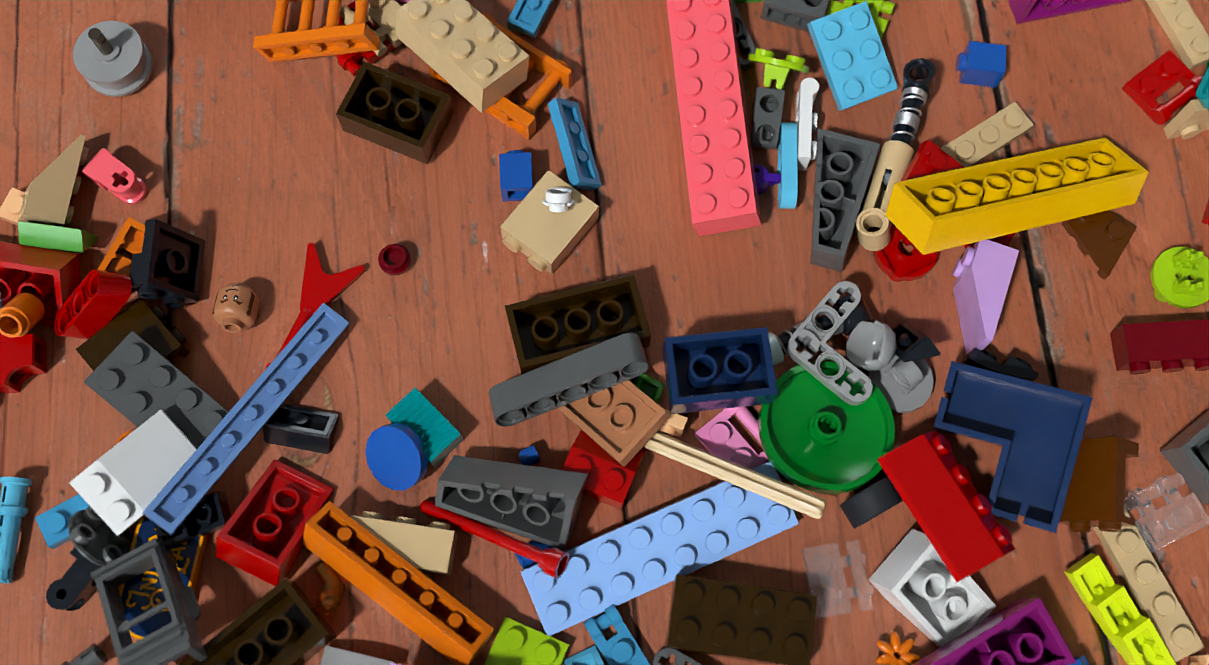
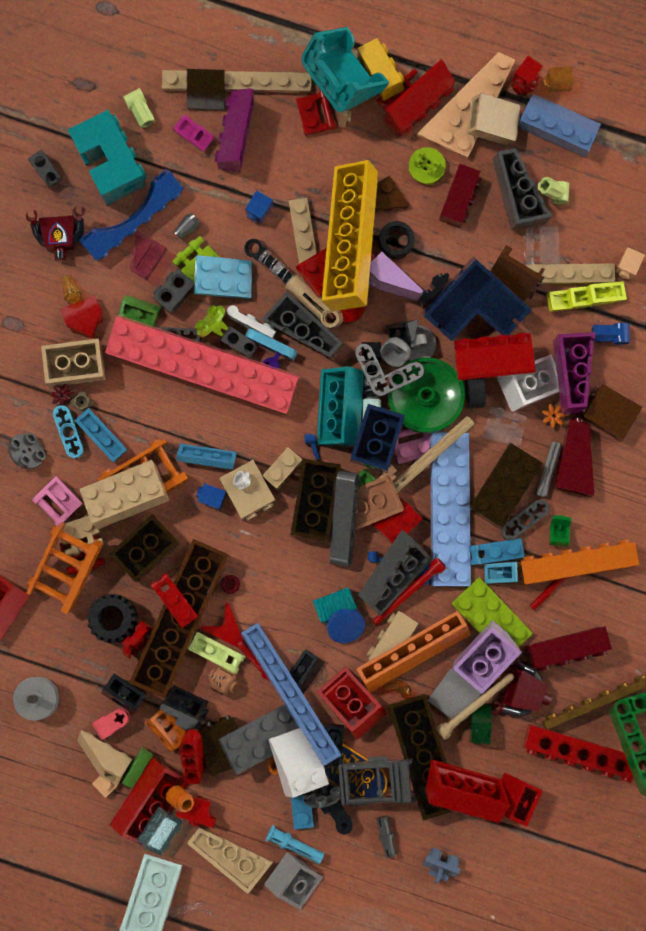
camera: 65 degrees left, 10 degrees up
(161, 171) = (123, 693): none -> black brick
(250, 156) = (134, 644): none -> red plate
(267, 90) = (95, 618): none -> black tyre
(279, 282) = (216, 652): none -> yellowish green plate
(308, 203) = (168, 640): none -> reddish brown brick
(328, 177) = (174, 600): none -> red plate
(603, 256) = (282, 468): none -> tan brick
(671, 285) = (310, 439): none -> blue hand
(749, 299) = (340, 406): none -> teal slope
(1064, 267) = (400, 226): none -> black tyre

